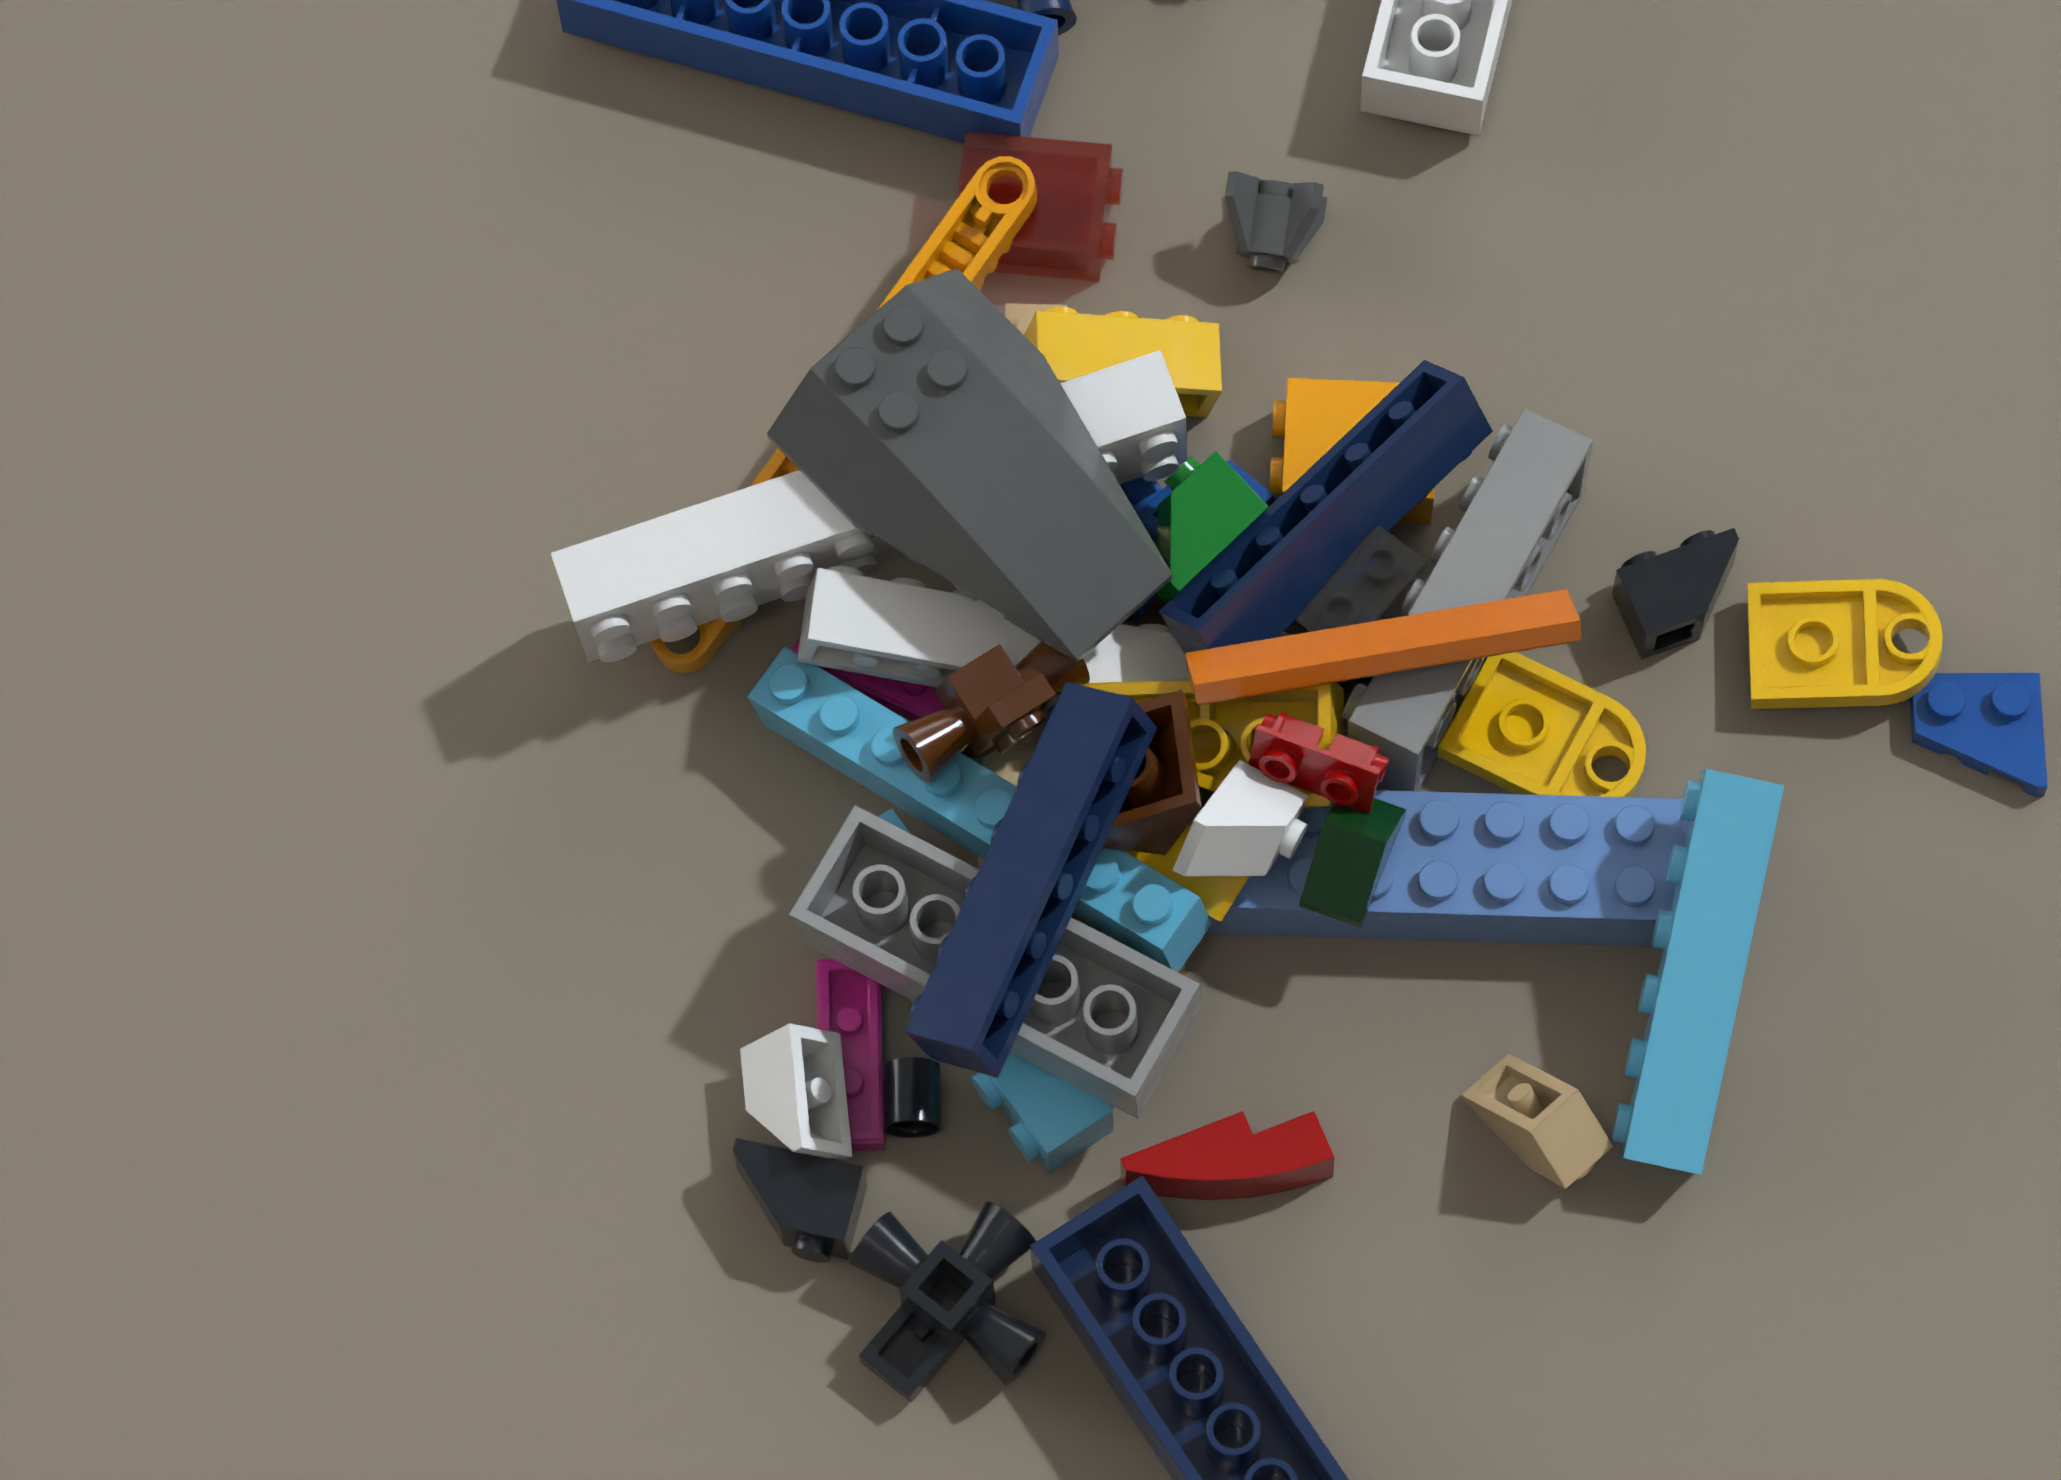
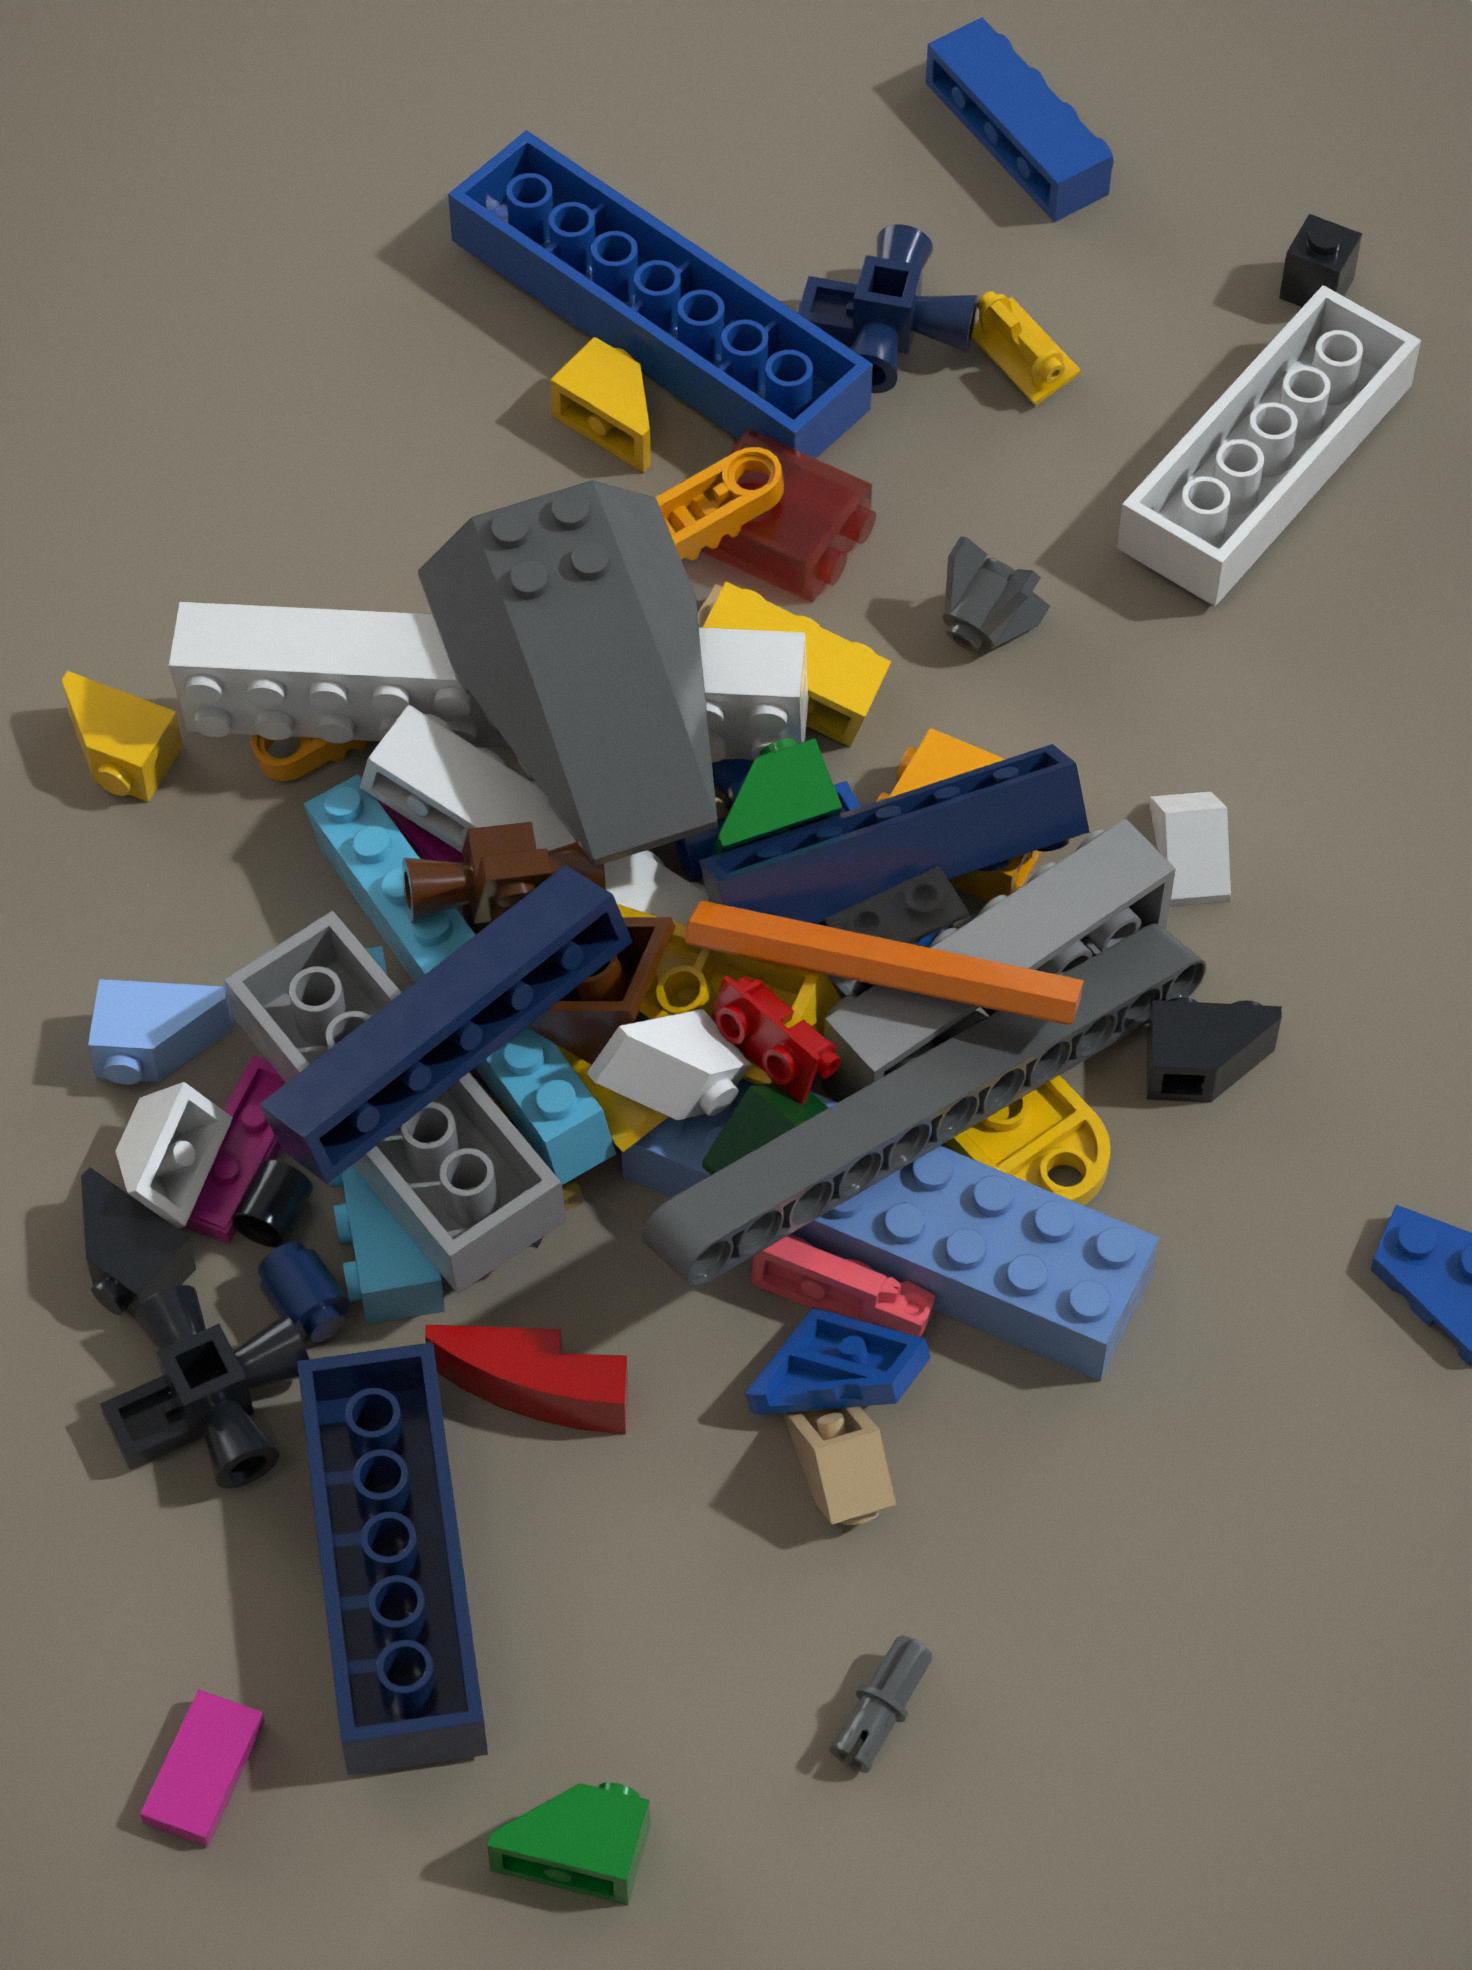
camera: 20 degrees right, 10 degrees down
(522, 693) = (122, 736): none -> yellow slope
(711, 974) = (154, 1027): none -> light blue slope
(809, 152) = (605, 401): none -> yellow slope
(985, 1170) = (305, 1290): none -> dark blue brick
(1461, 961) = (841, 1286): none -> coral hinge
(1466, 778) = (912, 1111): none -> dark grey beam
(1498, 1037) = (838, 1365): none -> blue wing
(1571, 386) = (1195, 840): none -> white slope
(1682, 1330) = (882, 1702): none -> dark grey axle
(1699, 971) = (1049, 1369): medium azure brick -> none
(1834, 643) = (1336, 1149): yellow plate -> none

